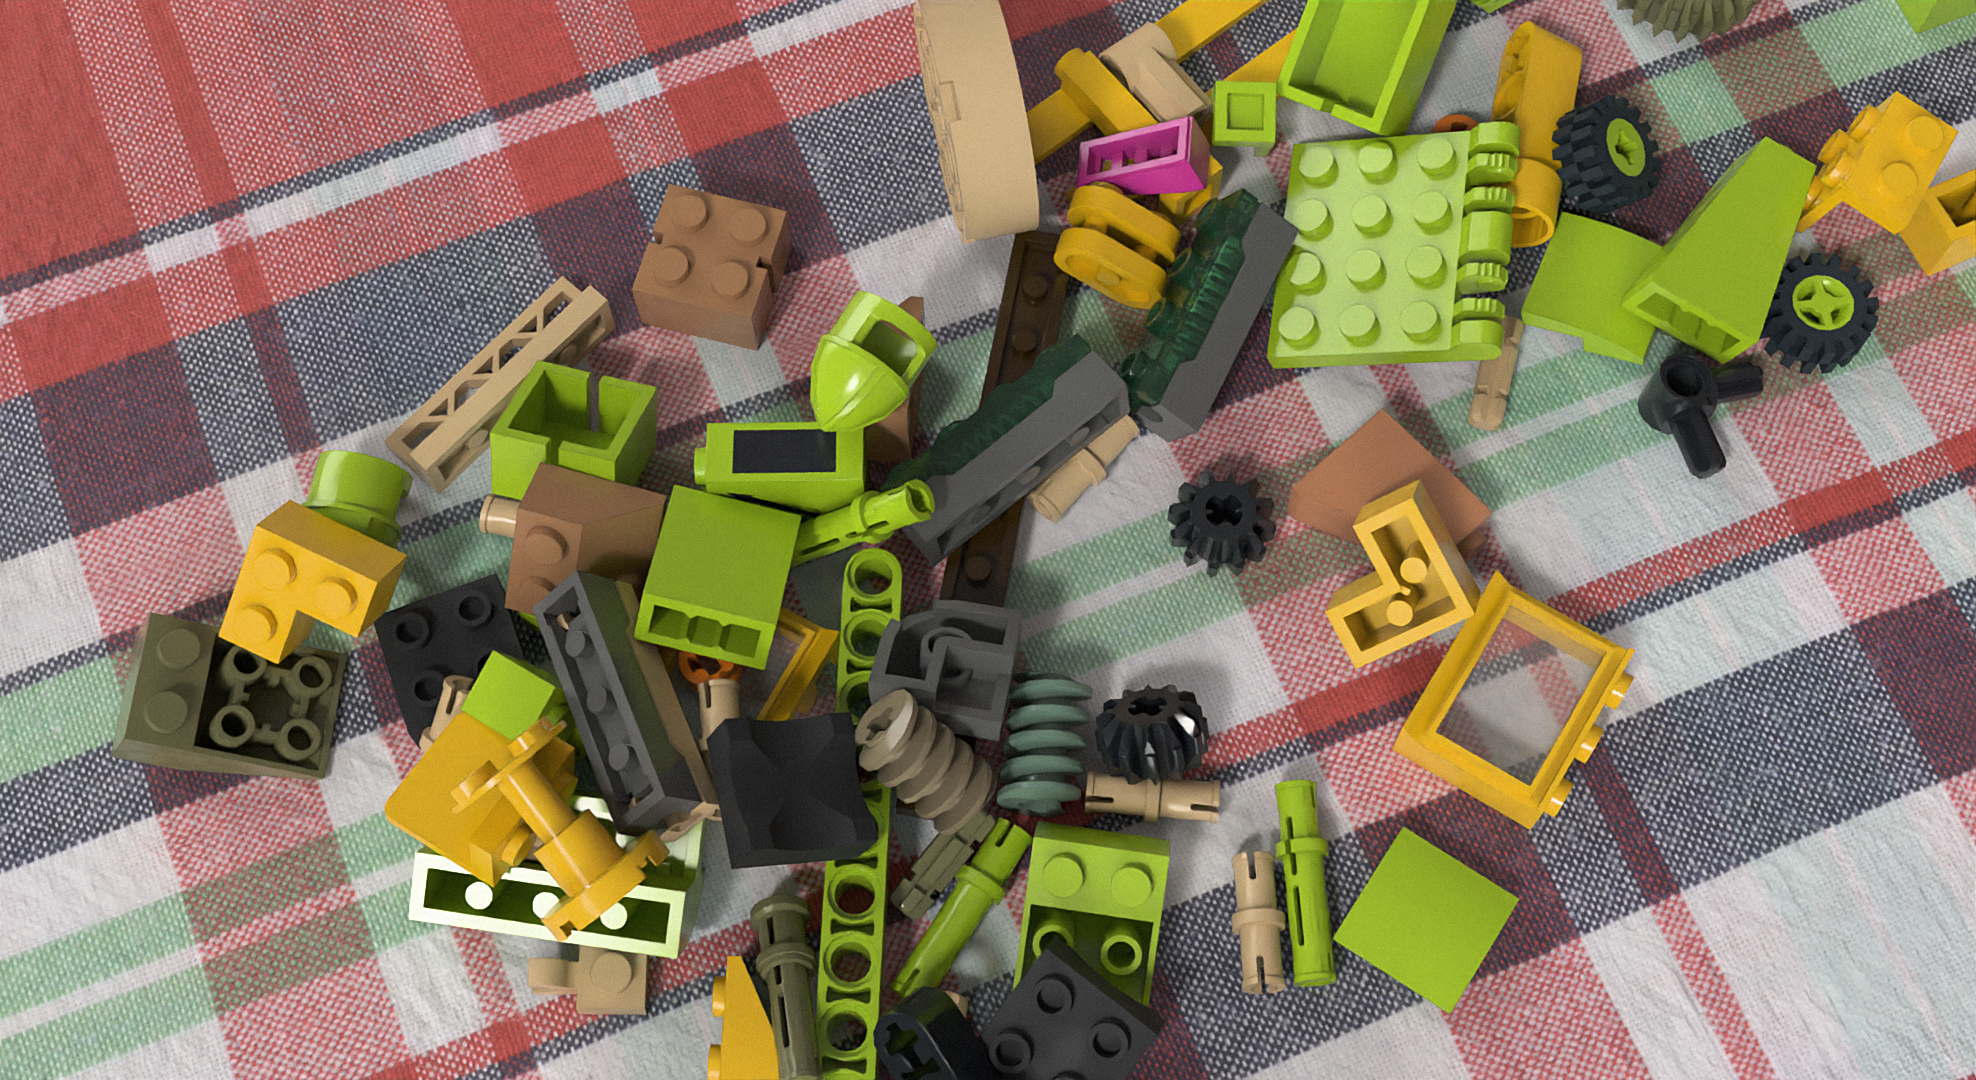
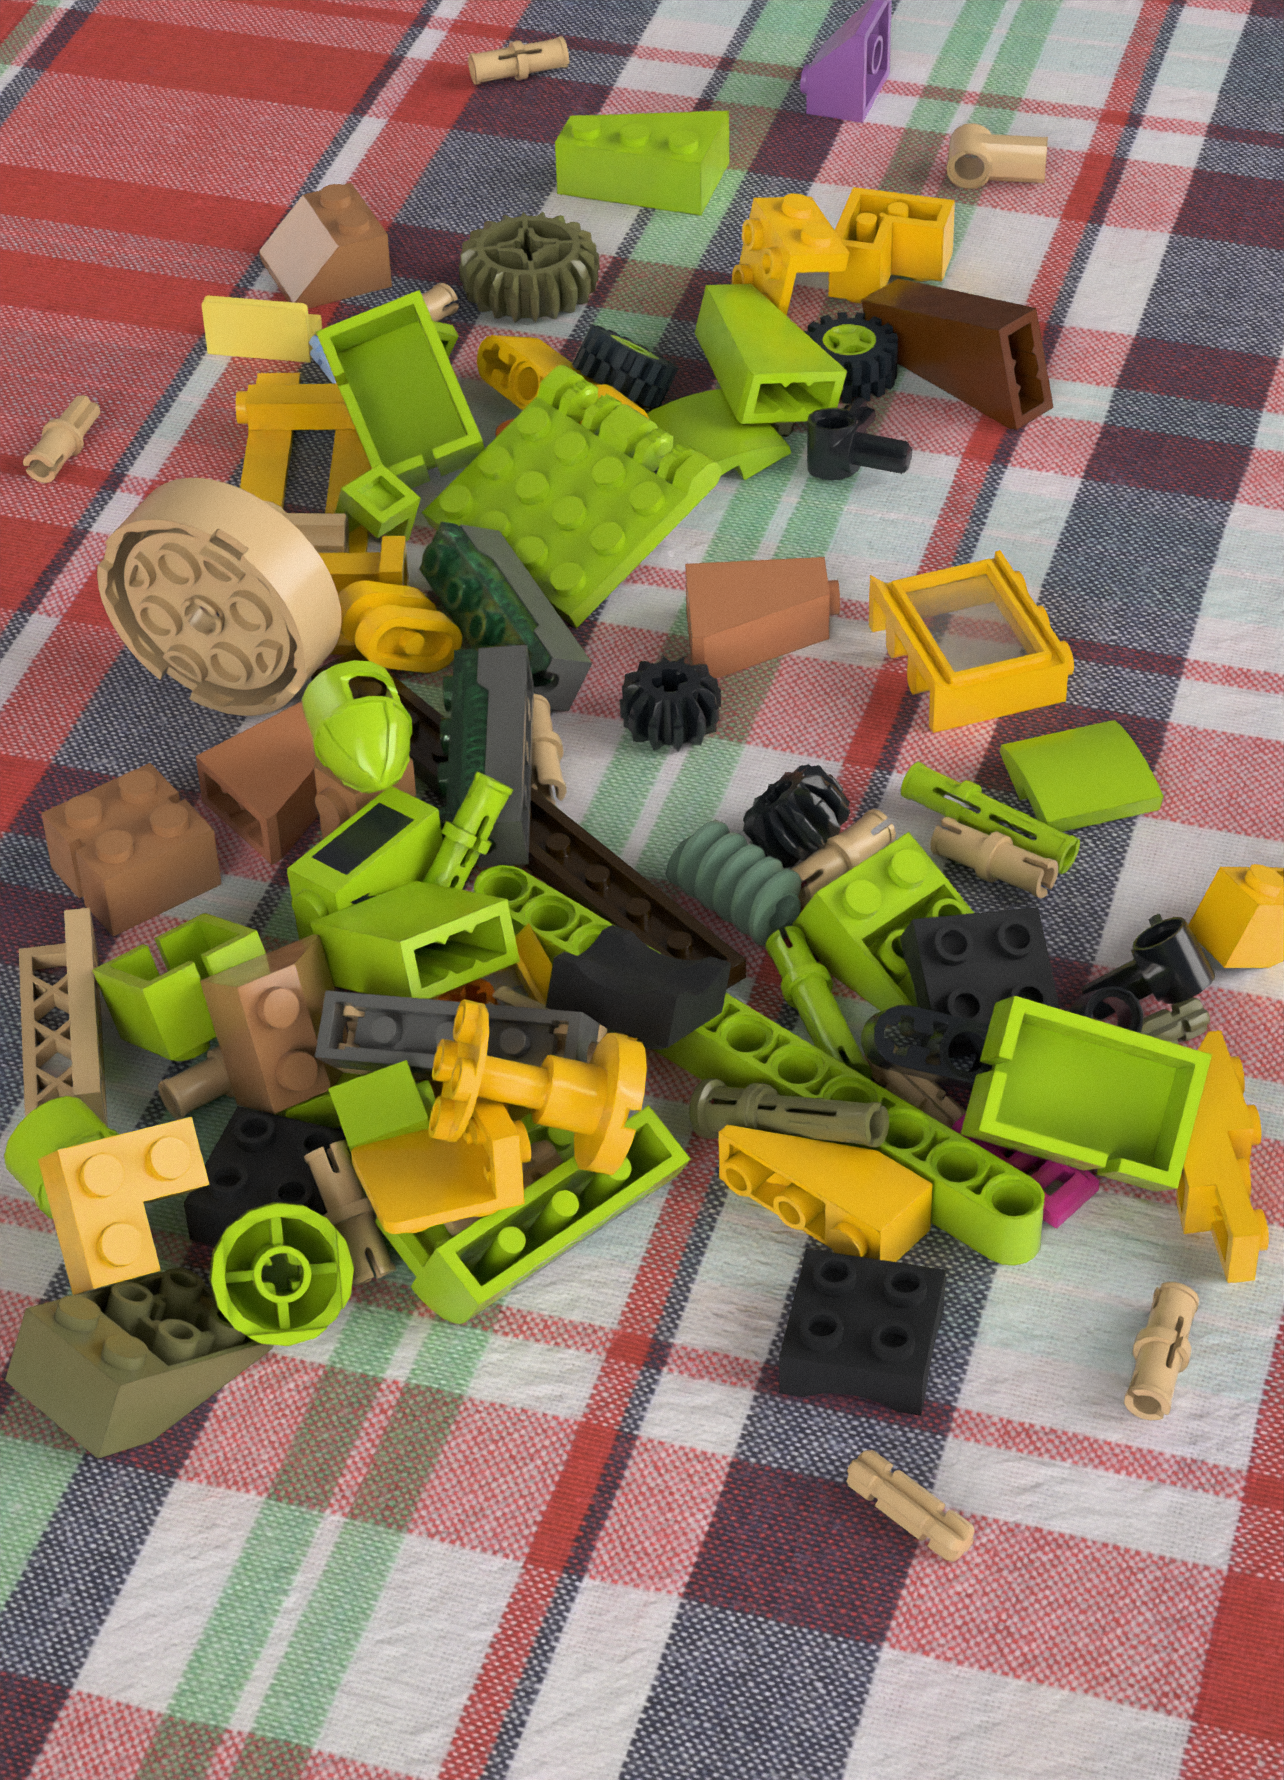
camera: 50 degrees left, 25 degrees down
(342, 747) = (281, 1273): none -> lime cylinder
(602, 979) = (641, 1248): tan plate -> none
(896, 274) = (264, 782): none -> nougat slope
(924, 761) = (695, 908): dark tan piece -> none
(939, 865) = (763, 978): olive axle -> none
(953, 662) = (637, 870): dark grey brick -> none
(1177, 144) = (365, 549): dark pink slope -> none
(1416, 583) = (839, 605): yellow brick -> none
(1495, 379) = (723, 528): tan axle -> none
(1911, 403) = (969, 347): none -> reddish brown slope

